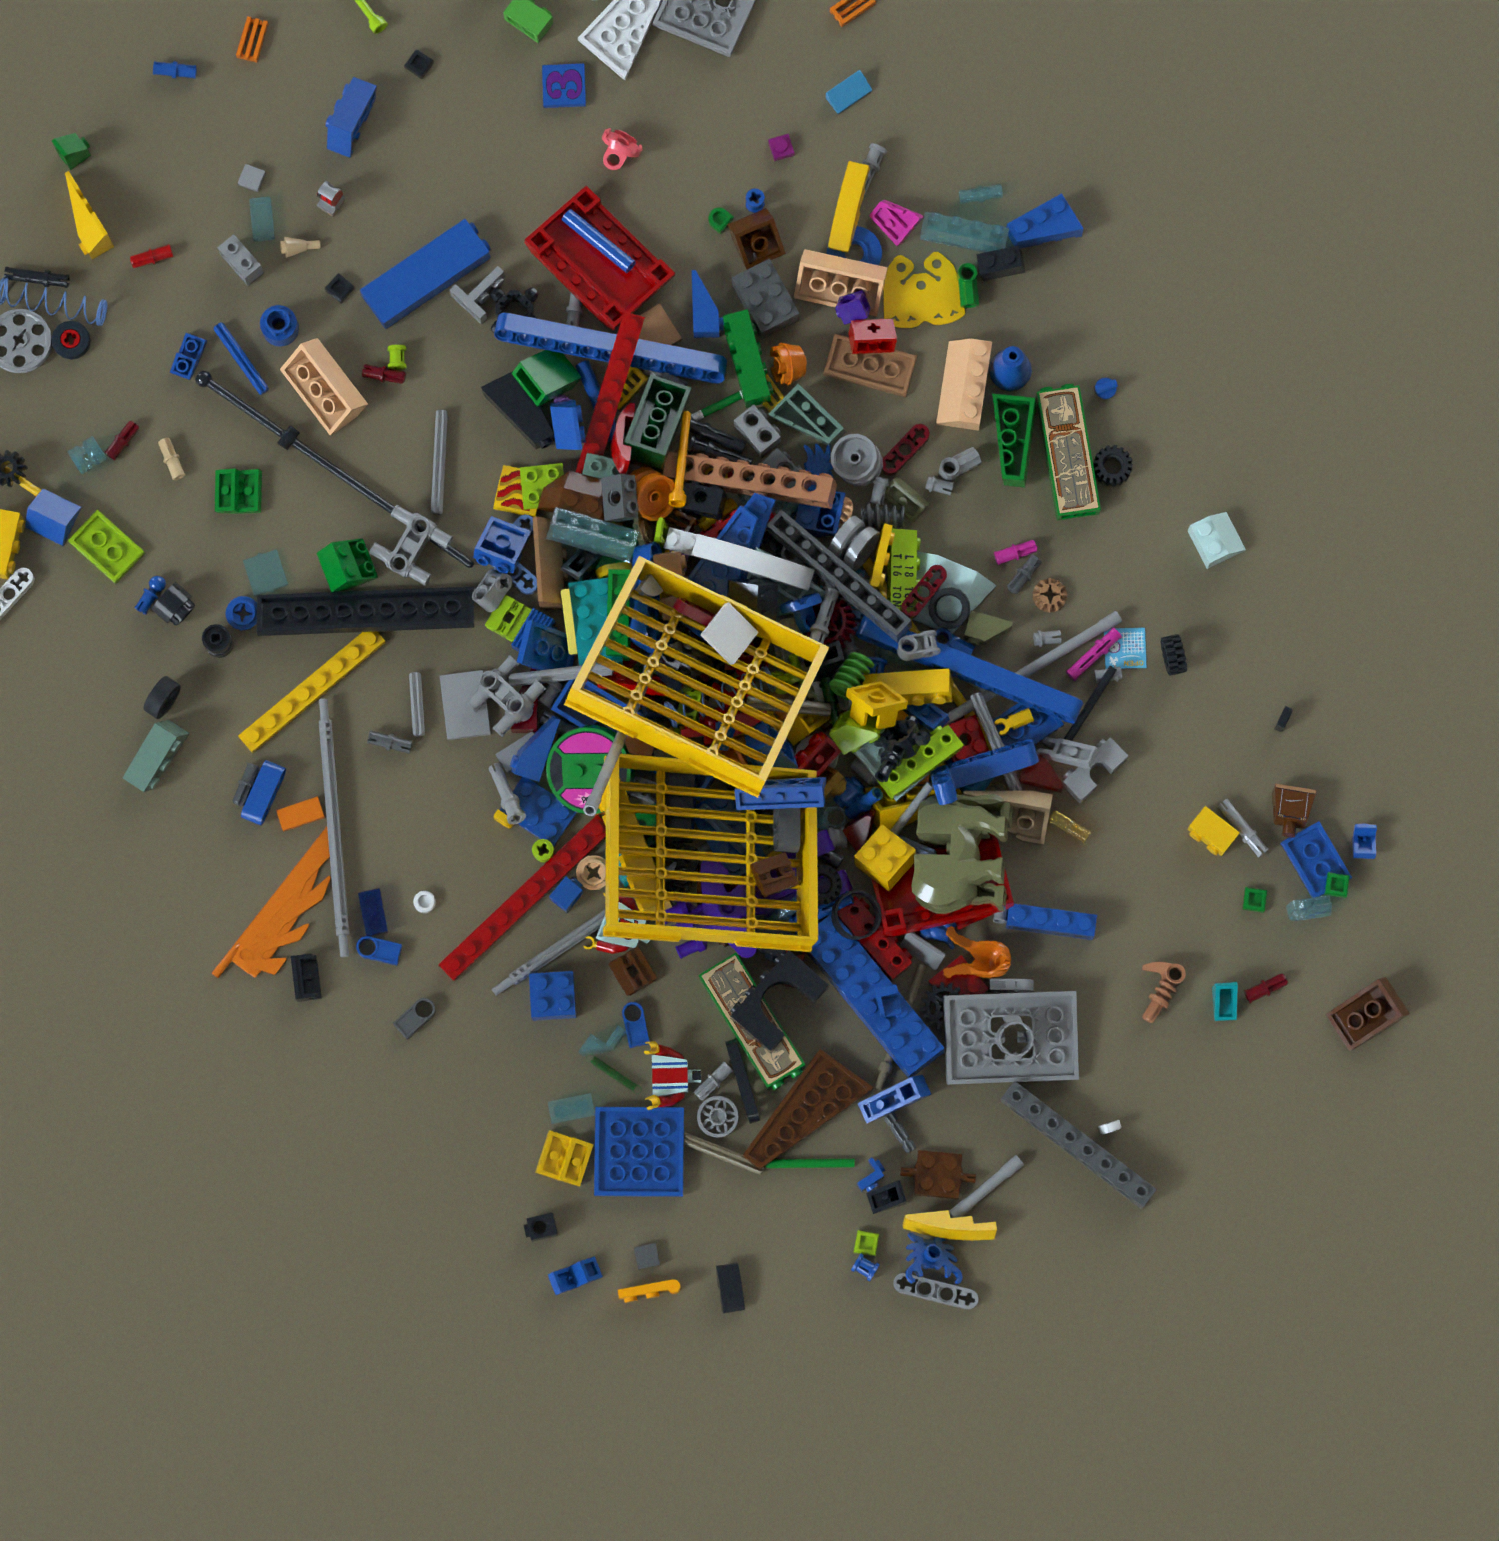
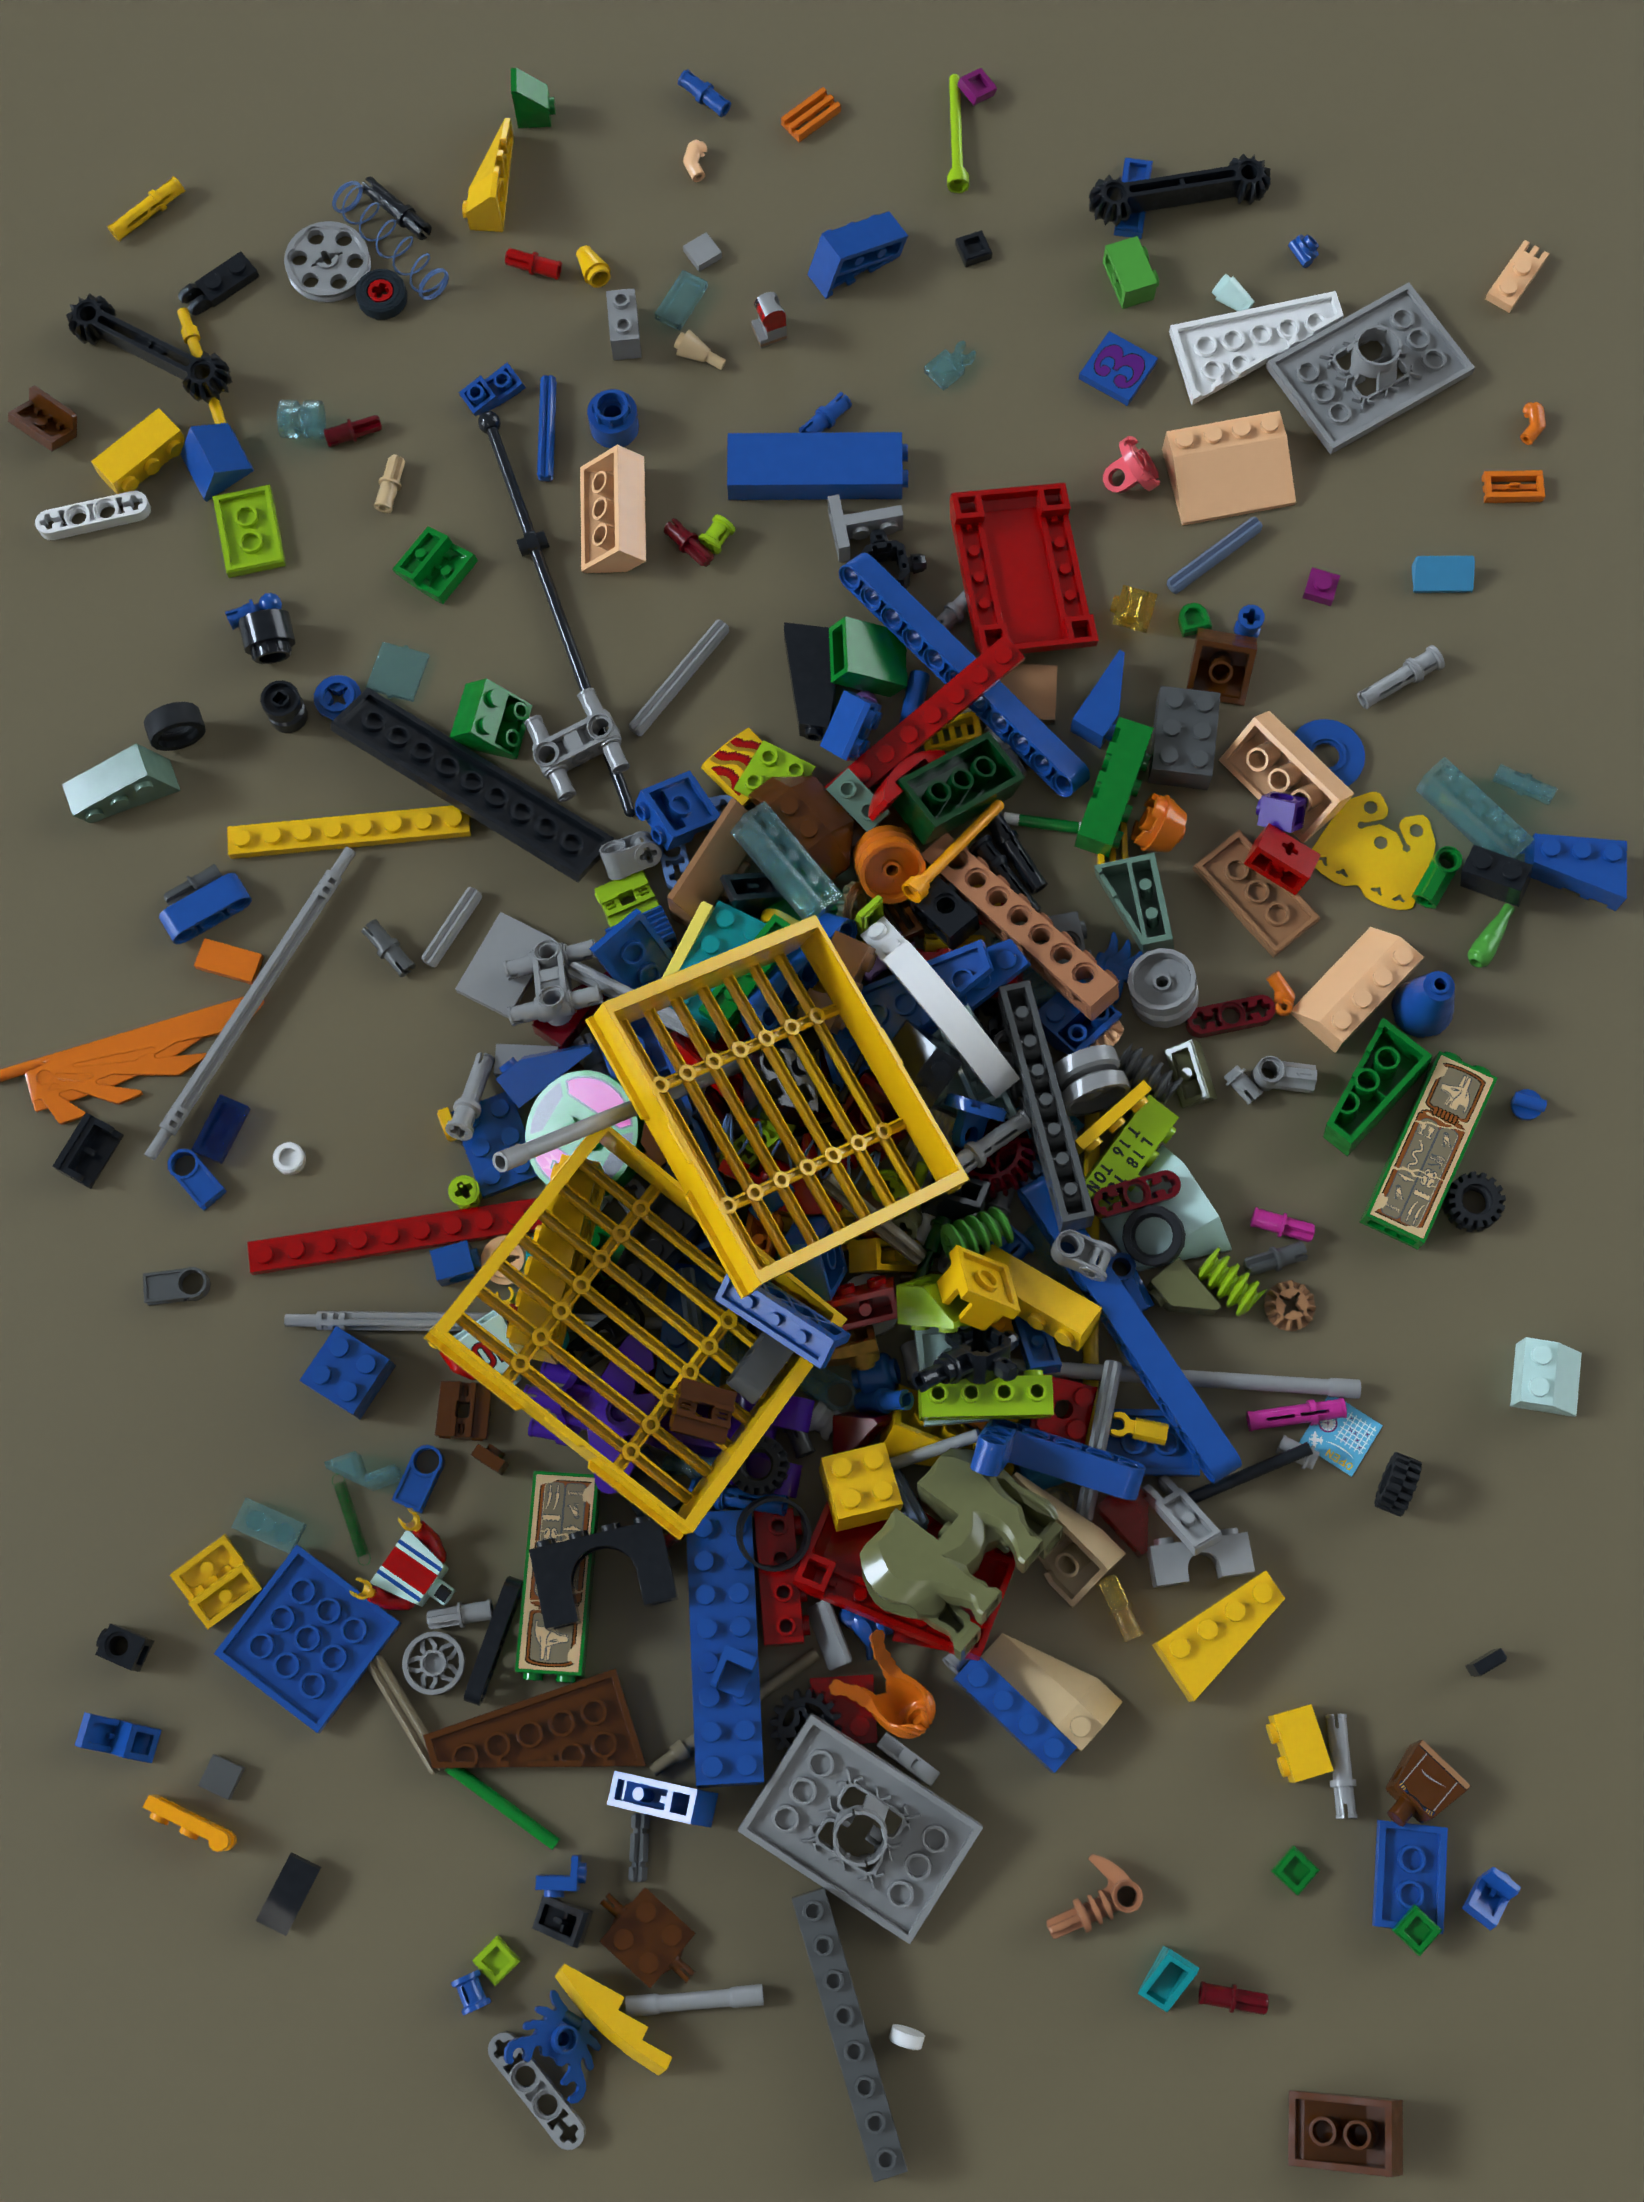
camera: 35 degrees right, 5 degrees down
(192, 234) = (594, 269): none -> yellow cone
(199, 120) = (691, 159): none -> light nougat arm
(339, 288) = (710, 424): black tile -> none
(408, 237) = (826, 416): none -> blue pin
(459, 154) = (949, 367): none -> clear light blue plate
(598, 240) = (1035, 550): blue piece -> none
(619, 498) = (847, 841): dark grey brick -> none
(649, 587) = (803, 962): light grey tile -> none
(667, 985) = (491, 1457): none -> reddish brown plate
(677, 108) = (1229, 468): none -> light nougat slope
(680, 237) = (1133, 608): none -> clear yellow brick
(693, 611) = (843, 1039): dark red beam -> none
(704, 169) = (1214, 555): none -> sand blue axle
(729, 633) = (858, 1080): white tile -> none
(753, 433) = (1064, 879): light grey brick -> none
(848, 207) = (1354, 696): yellow slope -> none
(879, 490) = (1166, 1042): light grey pin -> none
(895, 220) = (1400, 748): dark pink wing -> none
(927, 416) = (1283, 994): none -> orange arm
(1008, 605) = (1229, 1282): none -> lime piece
(1022, 309) = (1488, 941): none -> bright green piece
(1045, 638) = (1249, 1354): light grey pin -> none
(1070, 893) = (1061, 1693): none -> tan wedge
(1129, 809) = (1214, 1636): none -> yellow wedge
(1309, 908) = (1360, 1934): clear light blue piece -> none

